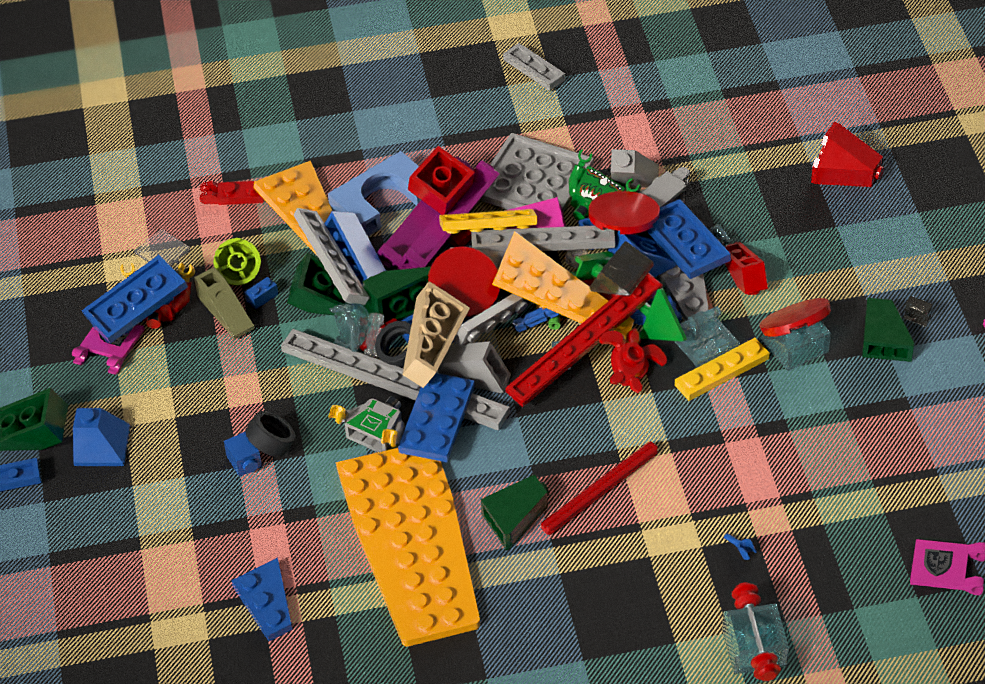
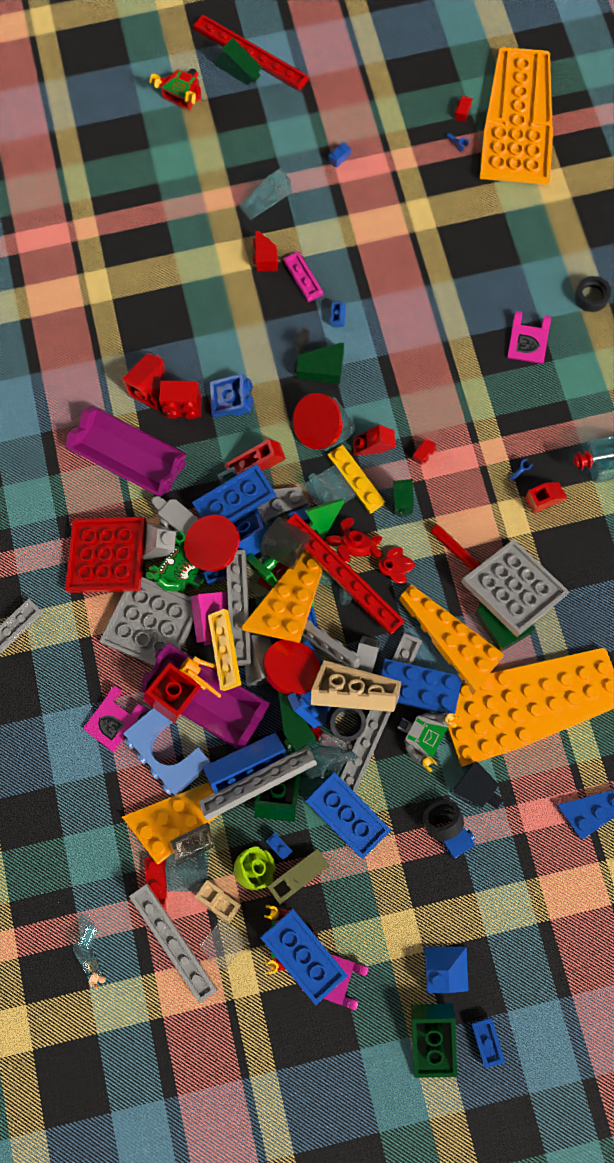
camera: 90 degrees left, 25 degrees up
(166, 138) = (87, 957): none -> clear light blue arm
(168, 200) = (173, 943): none -> light grey plate
(208, 240) = (217, 901): none -> tan slope
(246, 217) = (188, 875): none -> clear light blue slope
(271, 208) = (191, 844): none -> clear smoke slope
(287, 346) = (347, 815): none -> blue piece
(308, 475) = (478, 788): none -> black torso
(410, 286) = (303, 709): none -> blue plate
(419, 146) = (112, 721): none -> dark pink flag
(466, 190) = (191, 668): none -> light orange plant
(496, 456) = (456, 642): none -> light orange wing
(563, 516) = (515, 587): none -> light grey plate
(601, 408) = (398, 563): none -> red plate
(615, 126) = (106, 555): none -> red plate
(690, 405) = (403, 497): none -> dark green slope
(697, 562) = (545, 496): none -> red slope
(749, 147) = (126, 451): none -> magenta panel
(762, 438) = (424, 451): none -> red piece
(774, 383) = (374, 441): none -> red slope
(818, 188) = (180, 399): none -> red brick
(831, 242) = (231, 396): none -> blue plate
(963, 349) = (338, 313): none -> blue piece

